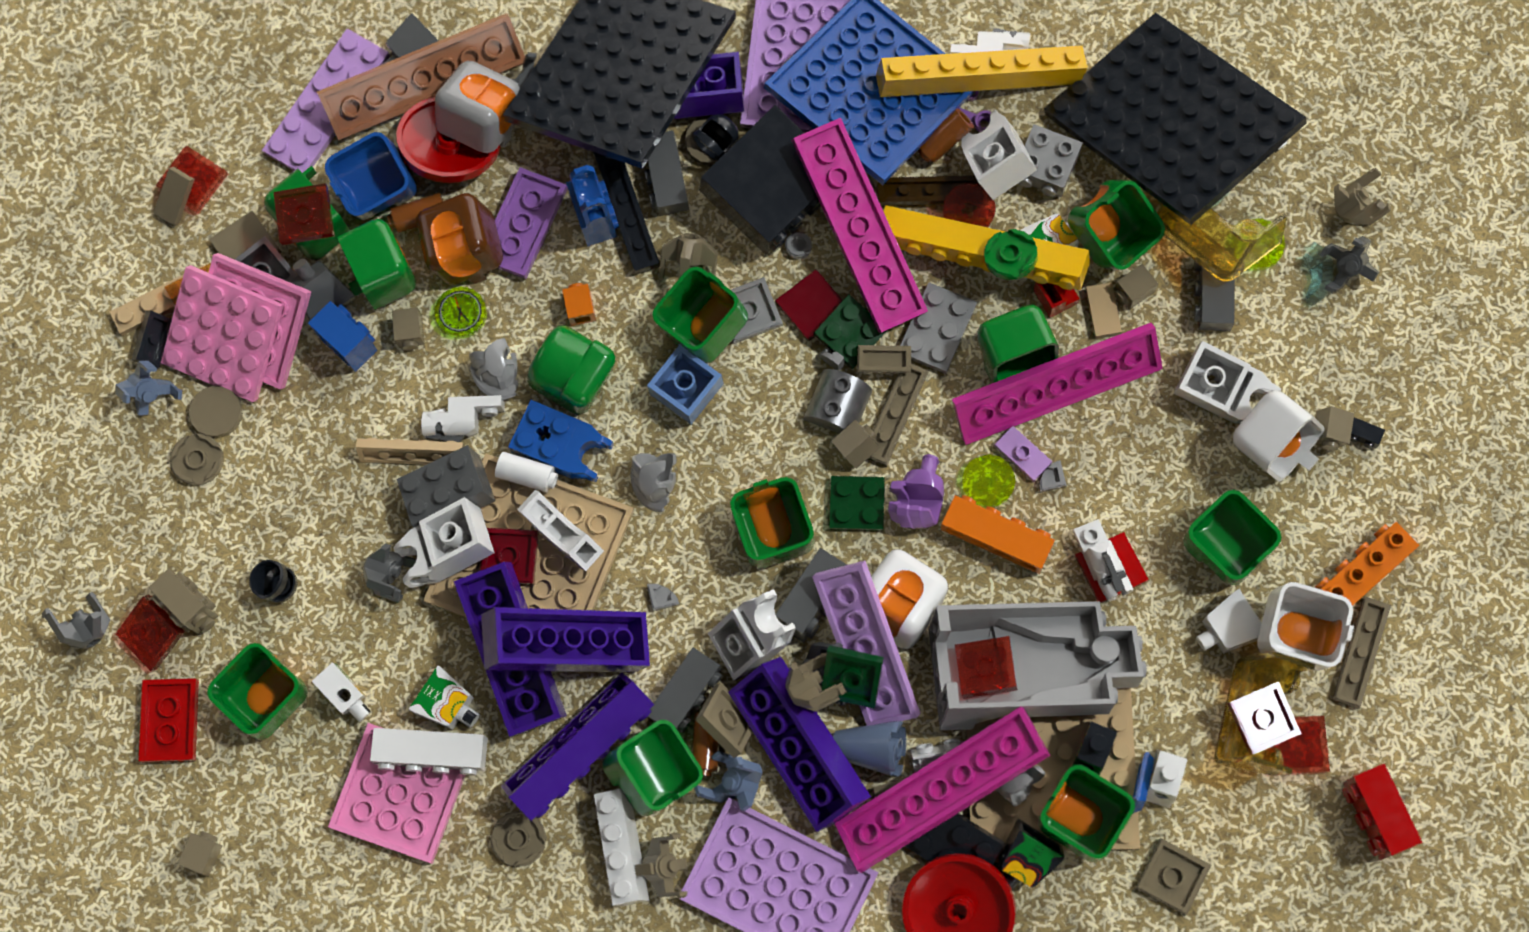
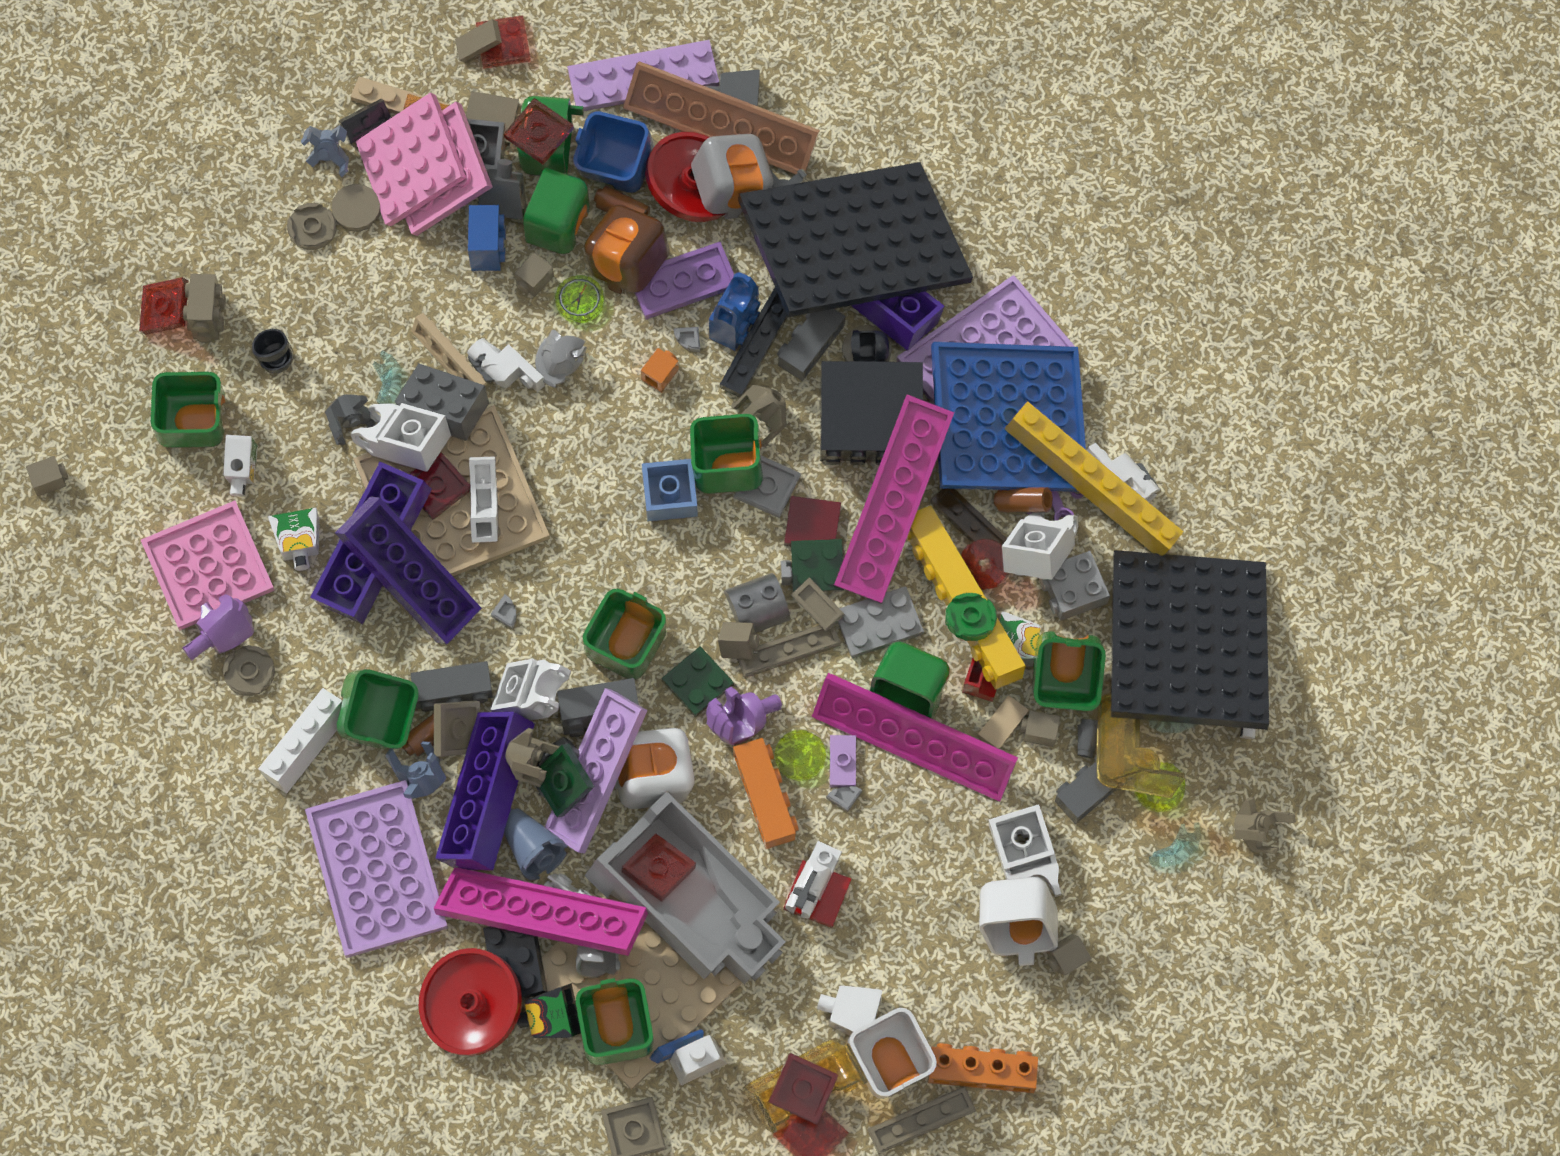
camera: 35 degrees right, 5 degrees down
(84, 629) = (126, 262): dark grey piece -> none
(168, 720) = (117, 373): red plate -> none
(384, 512) = (390, 376): none -> clear light blue piece
(429, 750) = (252, 554): white brick -> none
(466, 830) = (221, 627): none -> medium lavender piece
(526, 472) = (504, 441): white brick -> none
(566, 444) = (548, 451): blue brick -> none
(571, 369) = (606, 405): green piece -> none
(572, 261) = (688, 338): none -> light grey tile
(577, 746) = (345, 647): dark purple brick -> none
(653, 479) = (582, 530): light grey helmet -> none
(662, 866) = (316, 778): dark tan piece -> none
(798, 245) = (847, 476): light grey tile -> none
(1095, 747) = (669, 990): black torso -> none
(1173, 260) = (1087, 737): none -> dark grey cone
(1232, 537) = (913, 952): green piece -> none
(1350, 263) = (1206, 859): dark grey piece -> none
(1366, 433) = (1088, 982): black piece -> none

